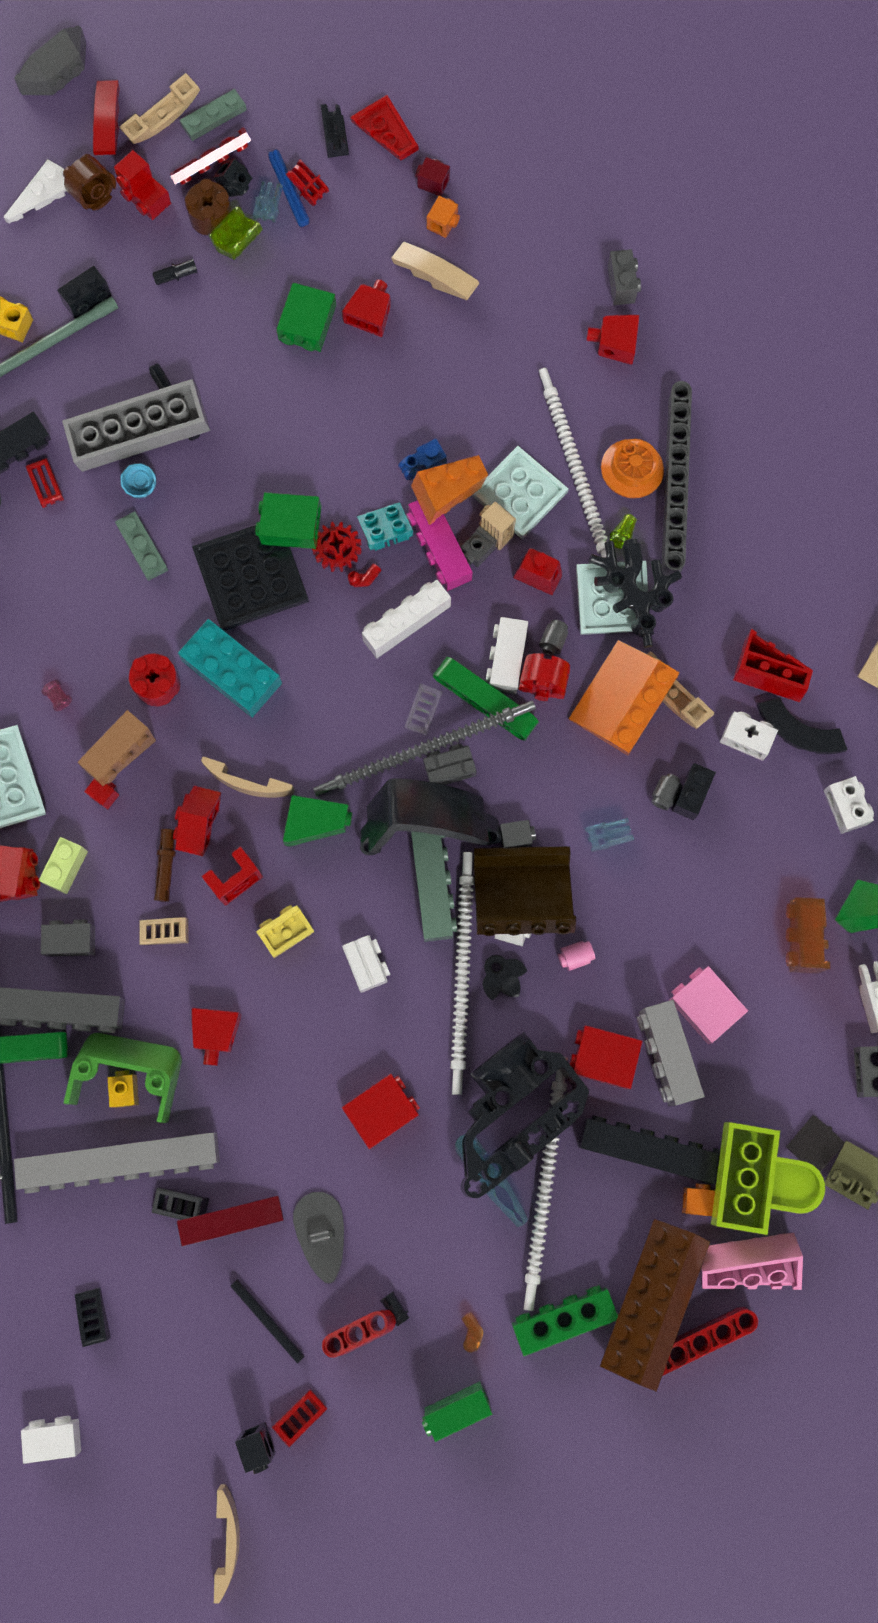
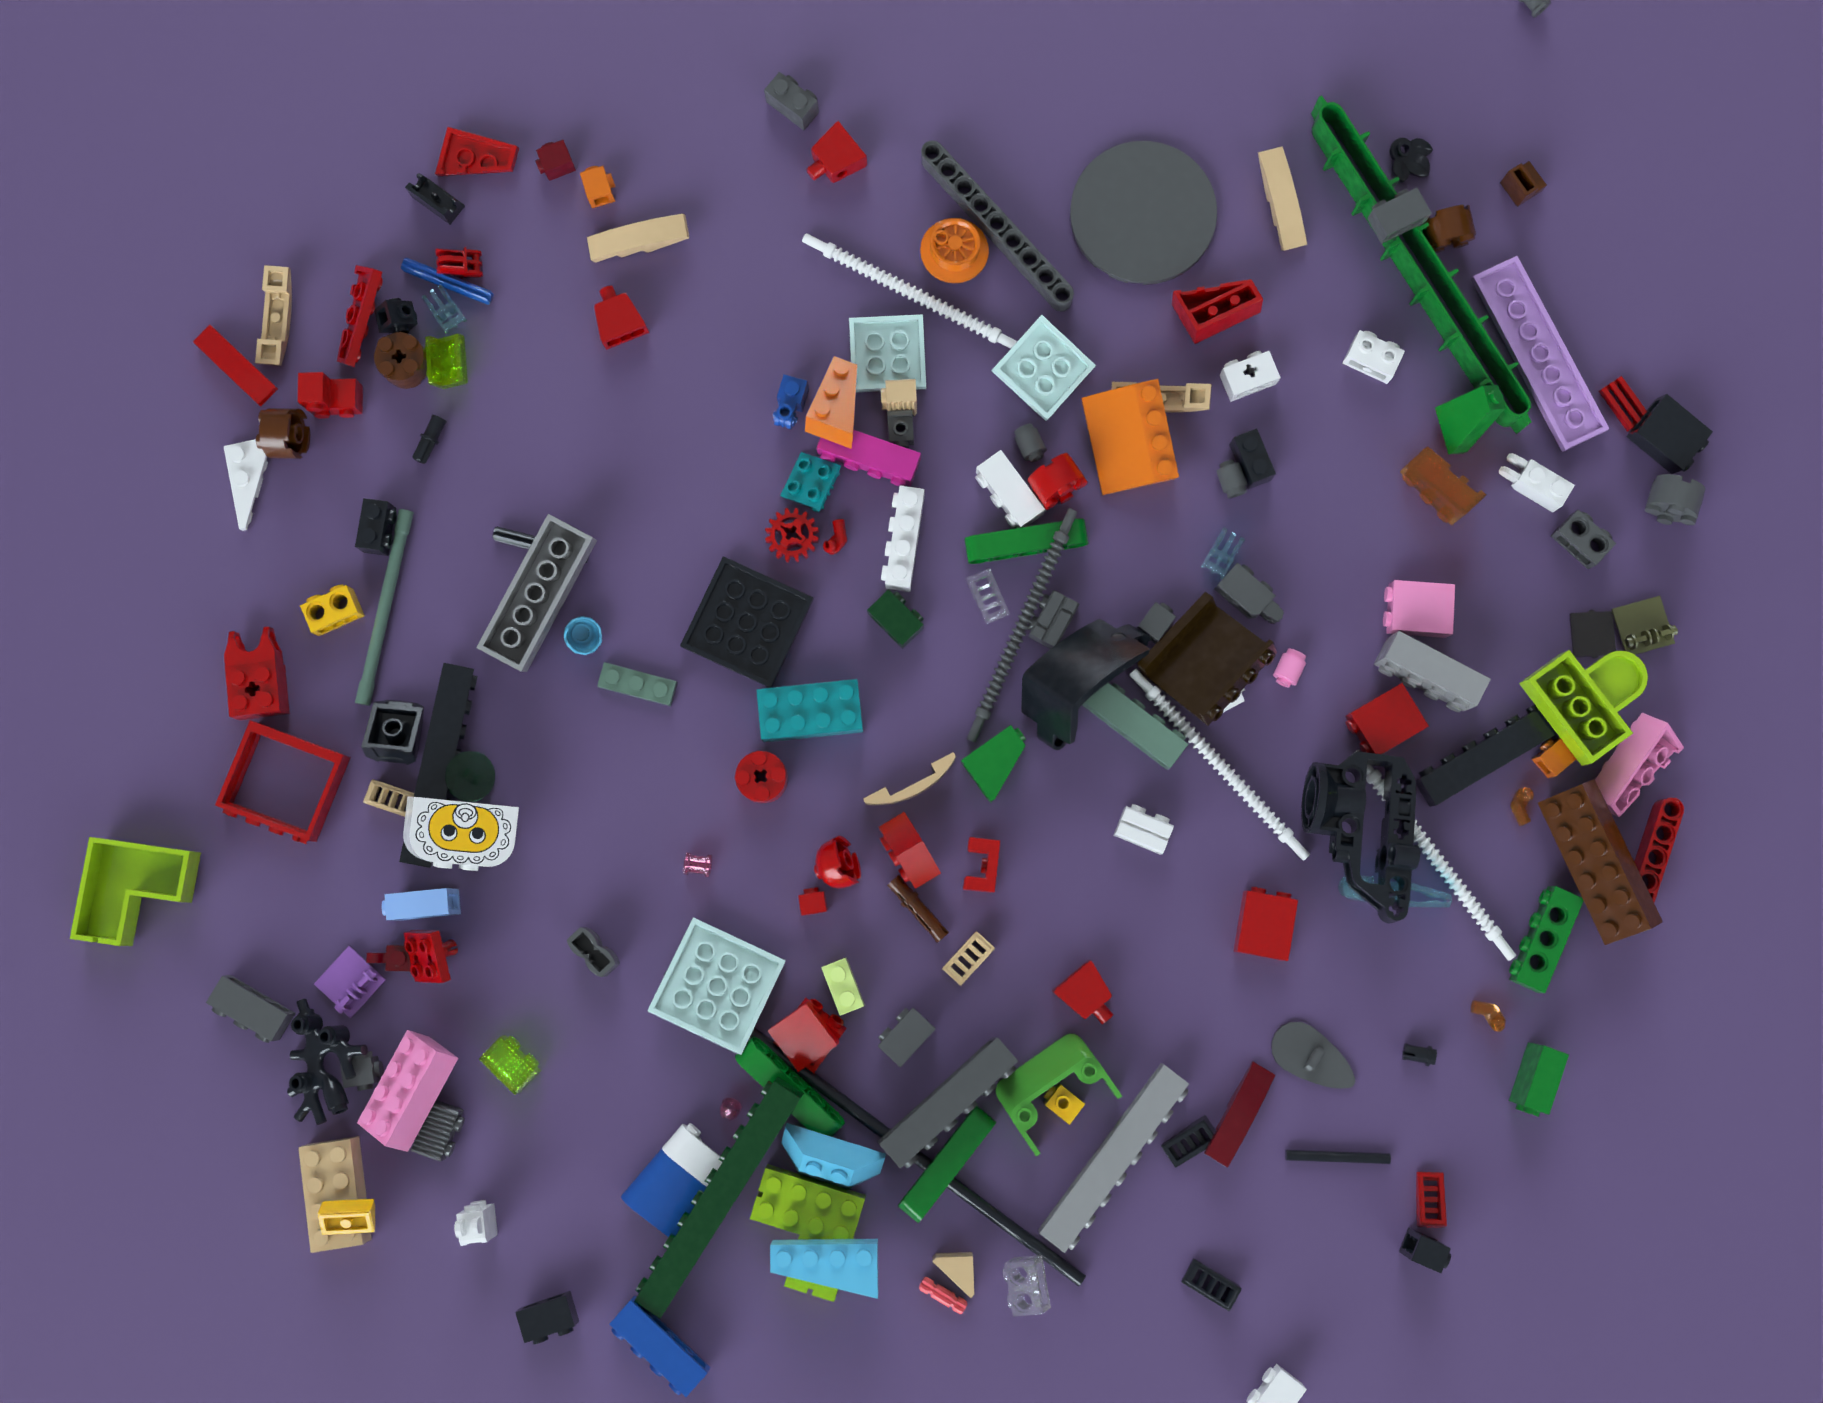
camera: 40 degrees left, 5 degrees up
(51, 498) = (526, 718): red tile -> none
(53, 63) = (145, 362): dark grey wedge -> none
(117, 748) = (794, 858): medium nougat wedge -> none
(143, 783) = (836, 864): none -> red cylinder
(213, 114) = (319, 278): sand green plate -> none
(227, 1509) = (1491, 1358): tan slope -> none
(284, 930) = (1060, 866): light yellow bracket -> none
(289, 520) = (737, 551): green brick -> none
(306, 317) = (575, 374): green brick -> none
(347, 664) = (896, 618): none -> dark green brick
(348, 1338) = (1414, 1109): red beam -> none
(504, 980) = (1254, 740): black plate -> none
(539, 571) = (966, 402): red torso -> none
(599, 879) = (1249, 594): none -> dark grey hinge
(623, 531) = (999, 309): clear neon green cone -> none
(625, 579) = (1065, 353): black plant -> none
(643, 1208) = (1519, 803): none -> clear orange arm
(786, 563) = (1143, 212): none -> dark grey tile
(799, 734) = (1282, 338): black tile -> none

